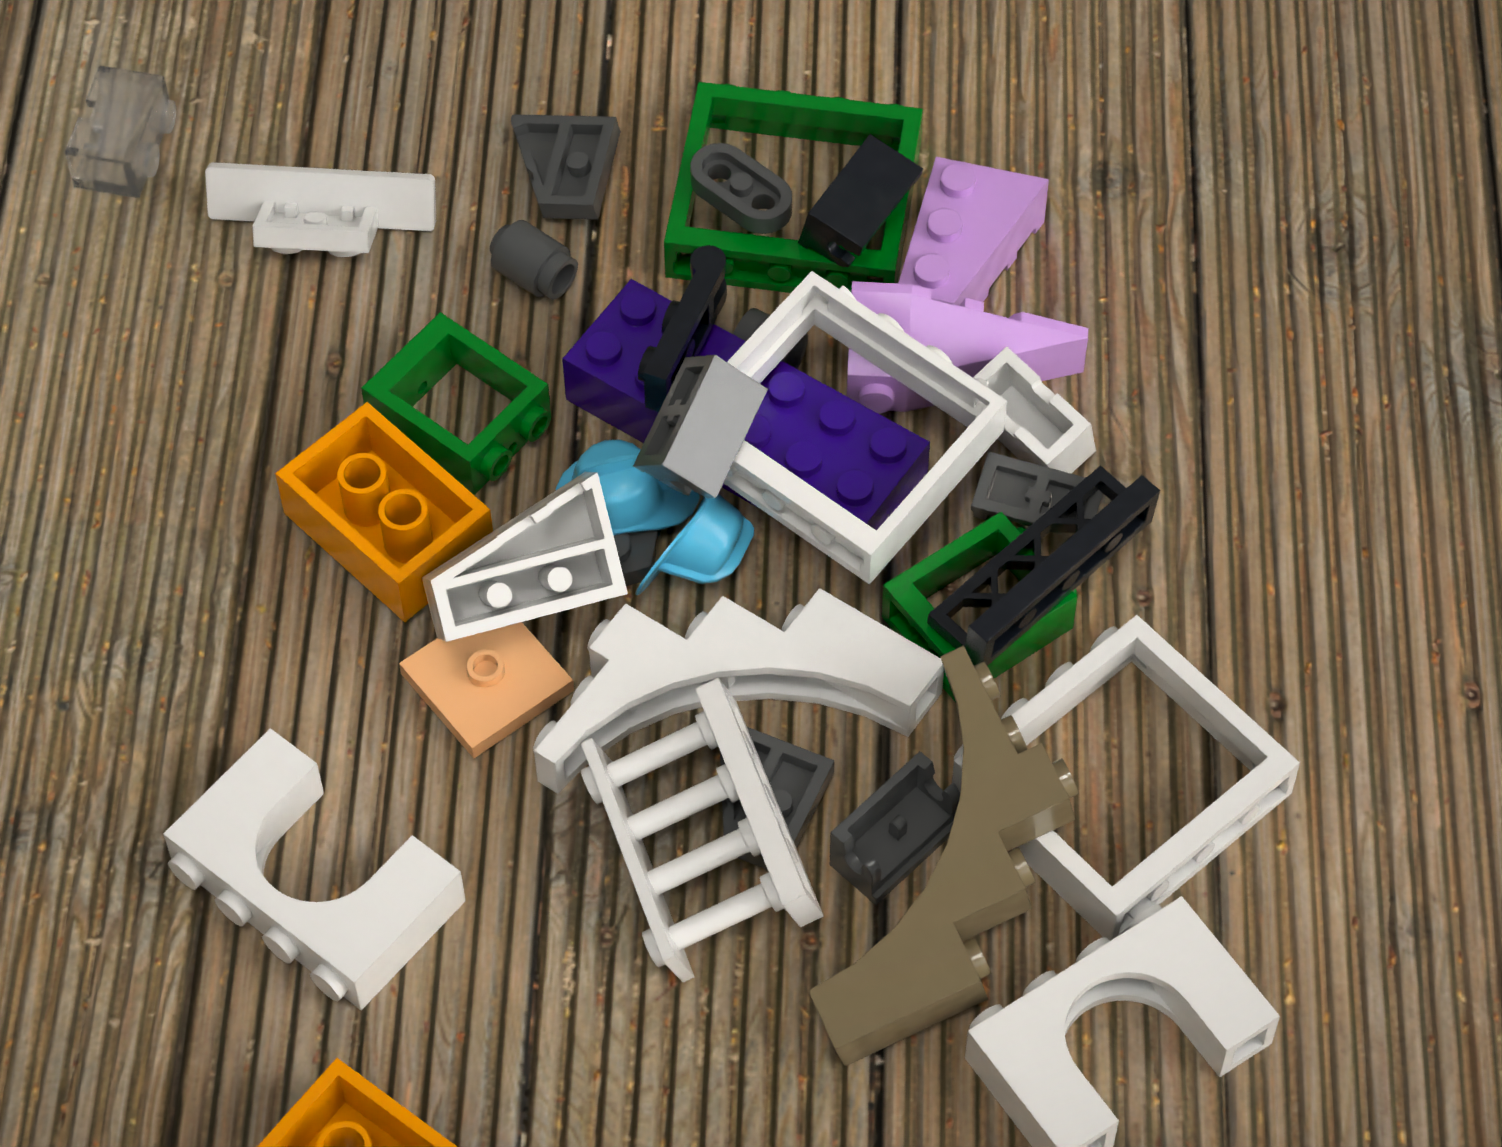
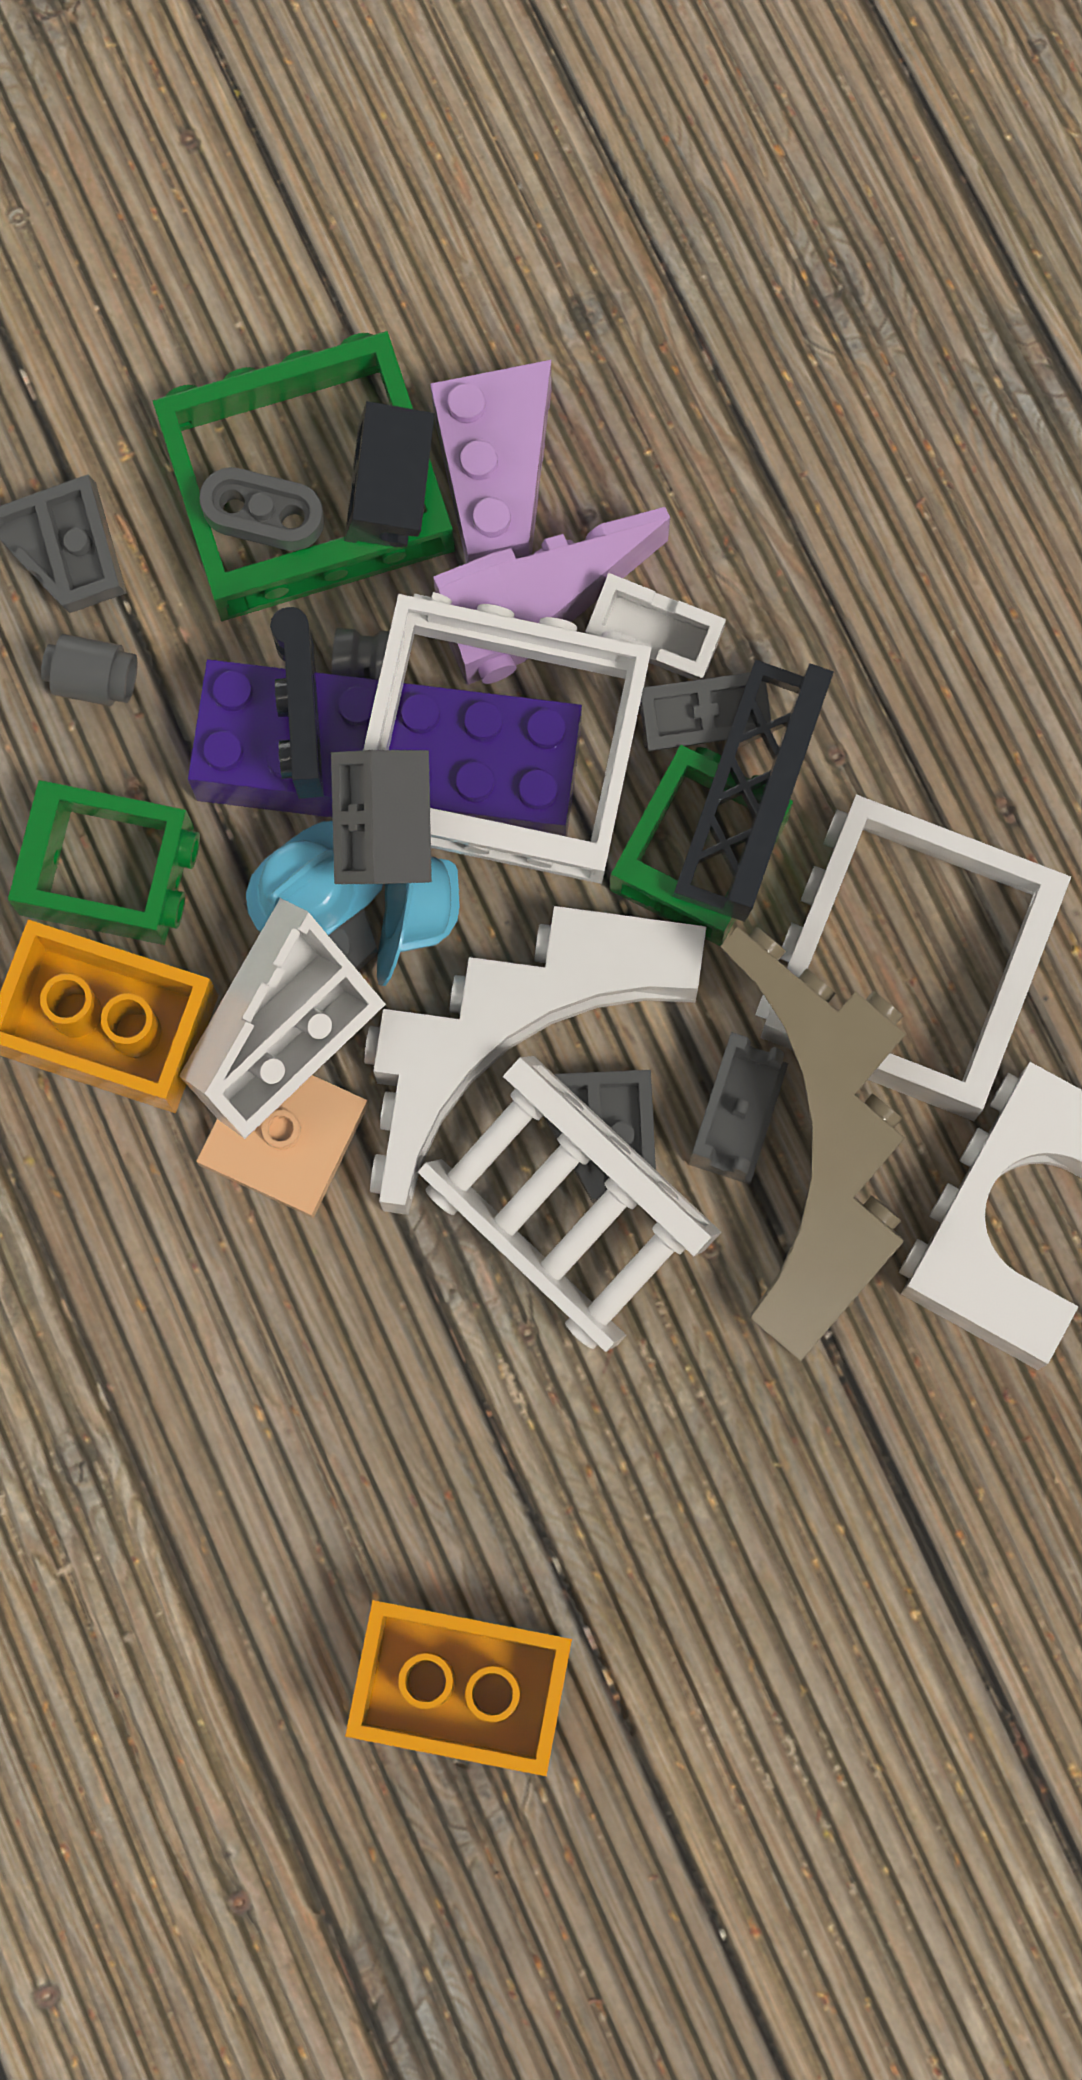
camera: 25 degrees left, 20 degrees up
(345, 942) = (141, 1428): white arch -> none

